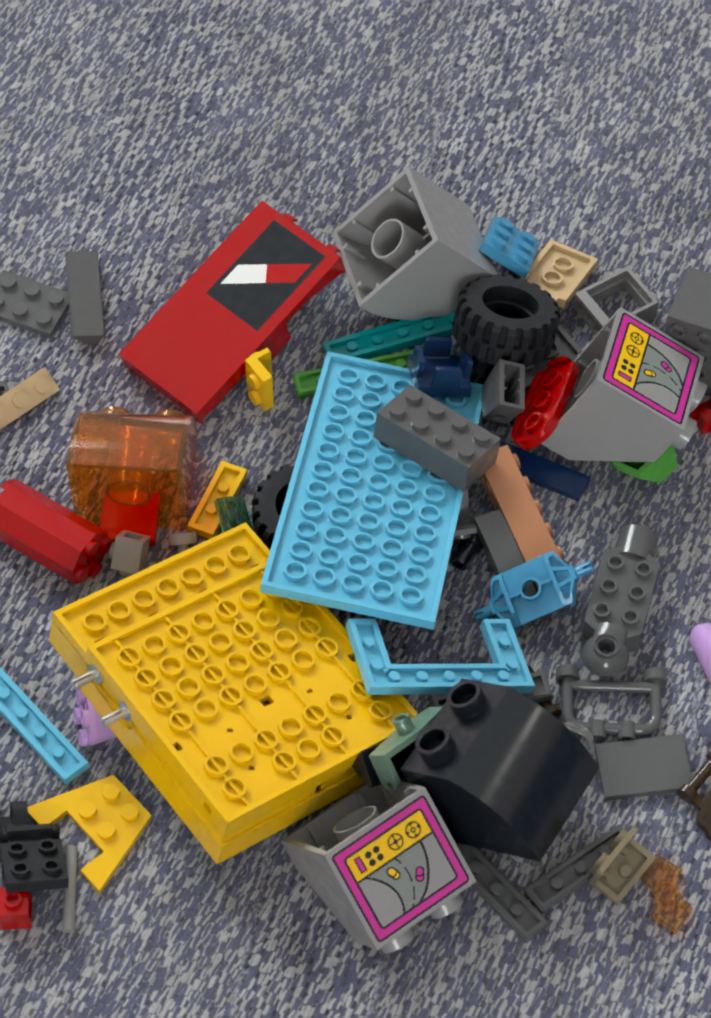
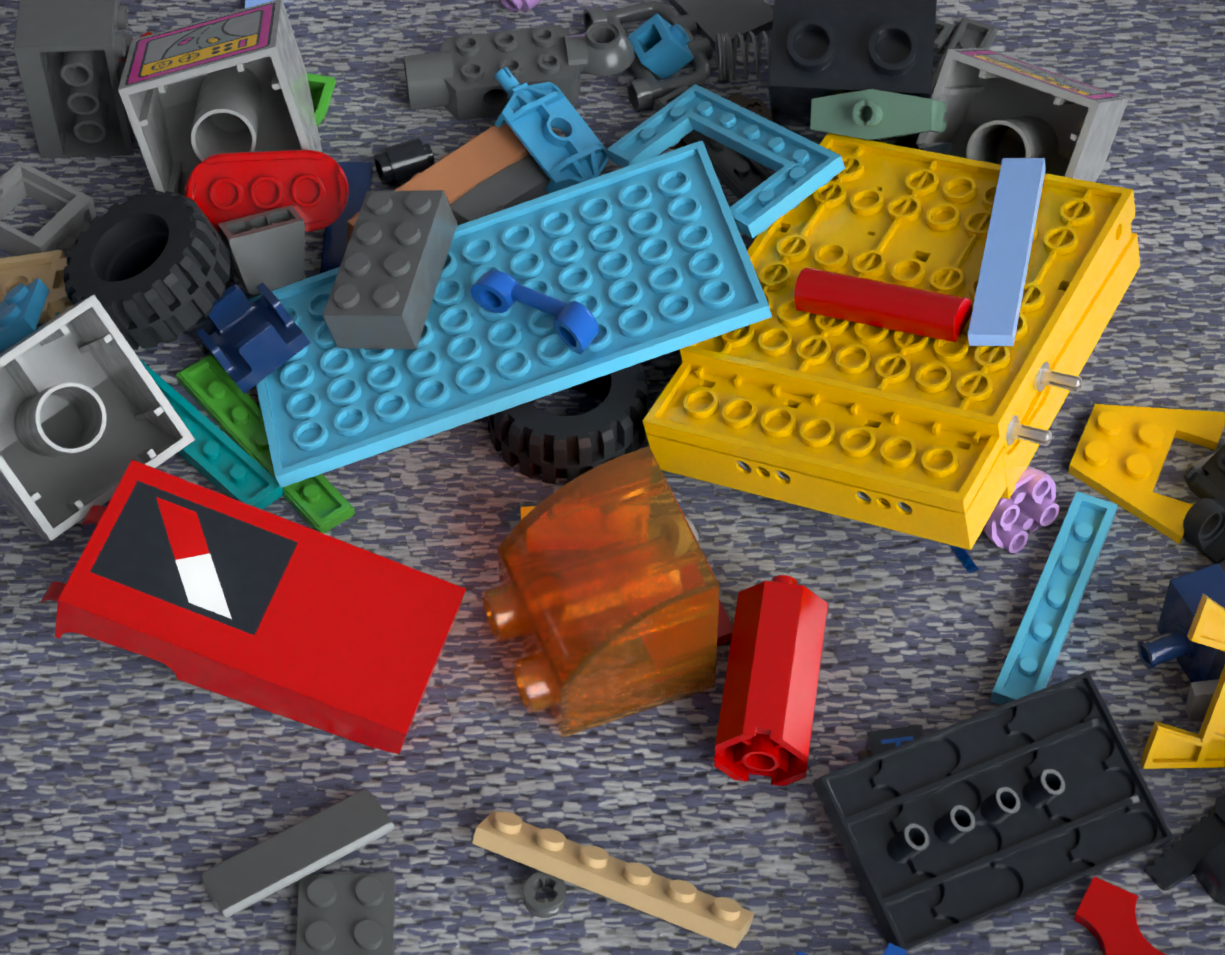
camera: 115 degrees left, 5 degrees down
(129, 552) = (738, 568): light grey brick -> none
(223, 728) = (1007, 252): none -> light blue tile
(228, 646) = (882, 304): none -> red brick
(260, 379) = (371, 526): yellow bracket -> none
(315, 492) = (573, 321): none -> blue piece
(567, 512) = (402, 161): none -> black brick
(598, 696) = (661, 46): none -> dark azure brick

